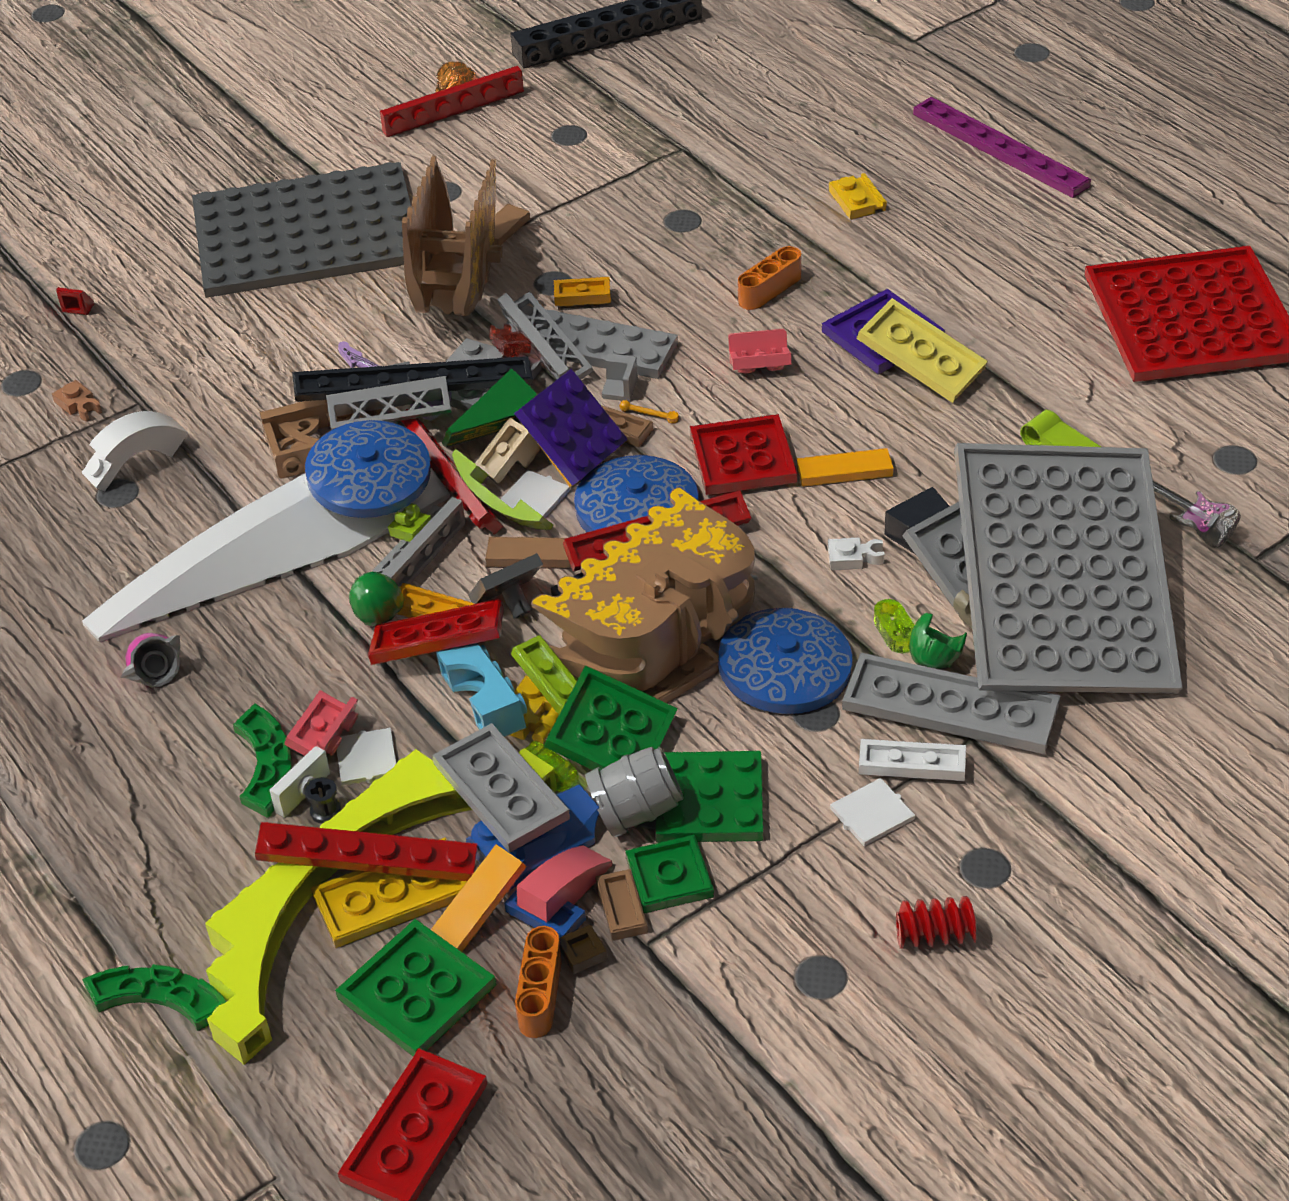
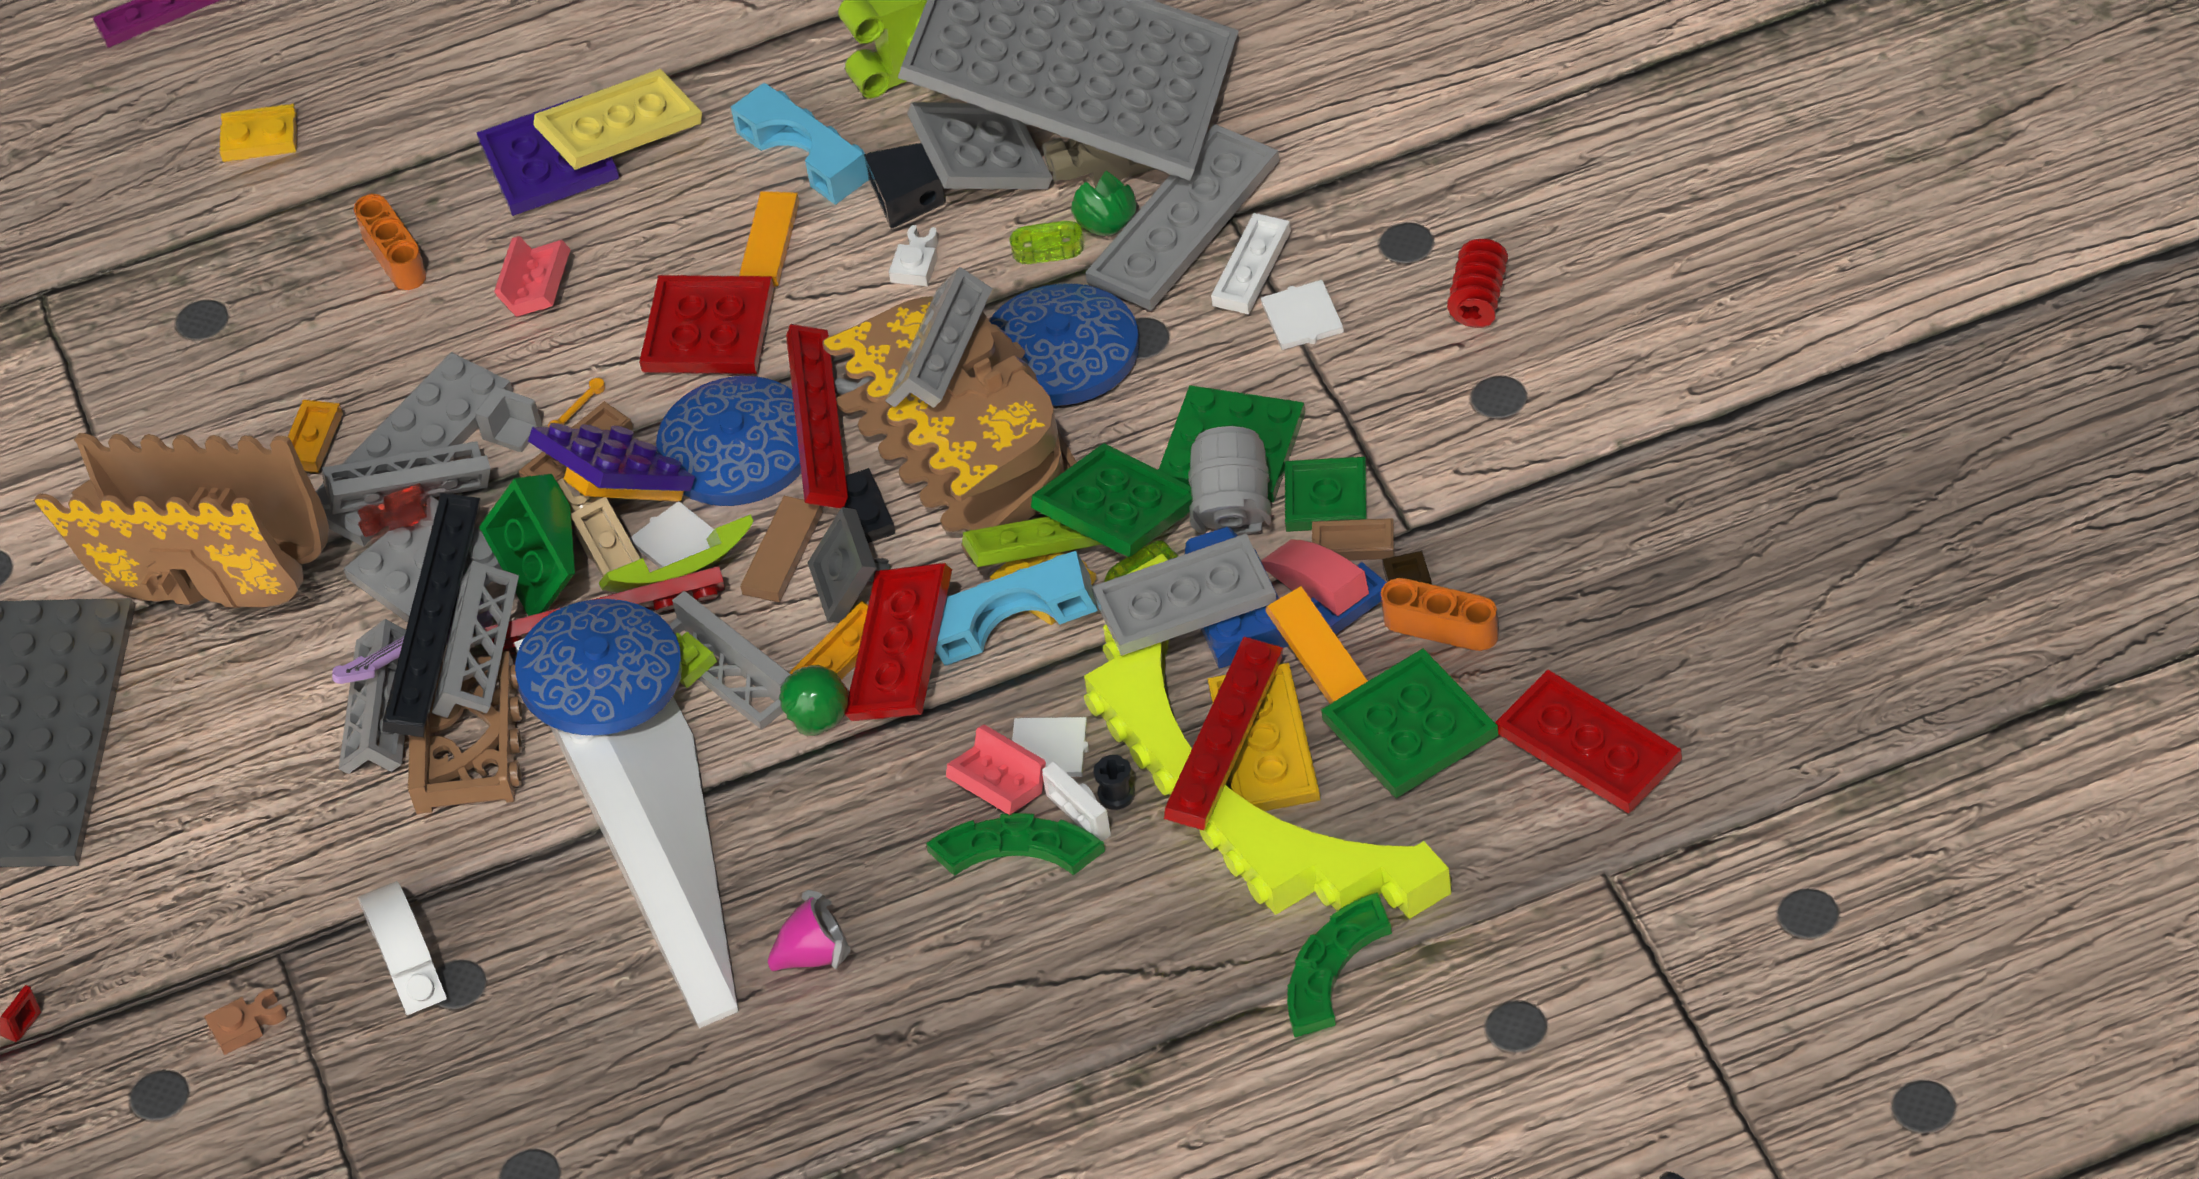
camera: 70 degrees left, 5 degrees up
(679, 544) = (941, 339): none -> light grey fence
(939, 470) = (772, 120): none -> medium azure arch

